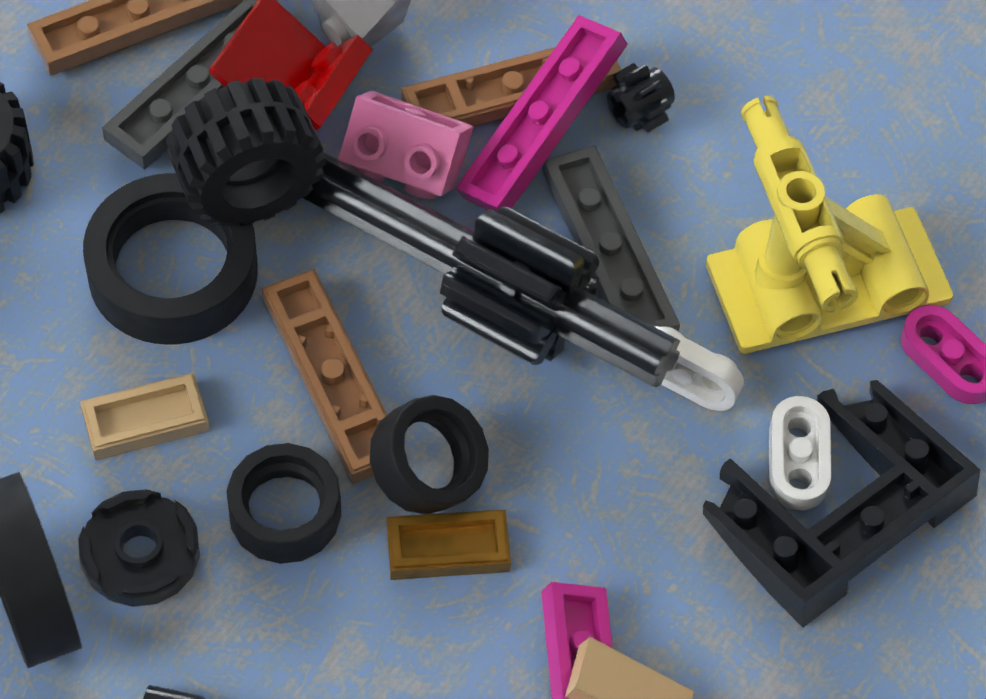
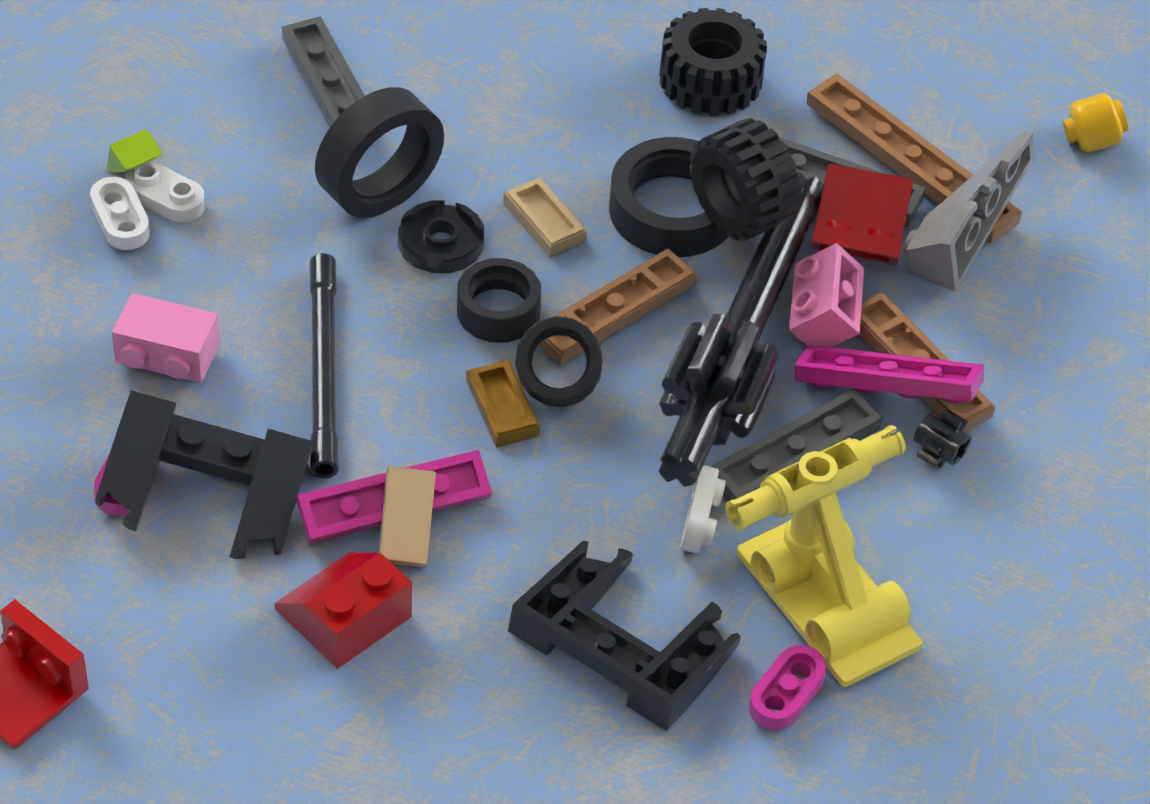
camera: 75 degrees right, 10 degrees down
(799, 457) = (653, 597): white plate -> none

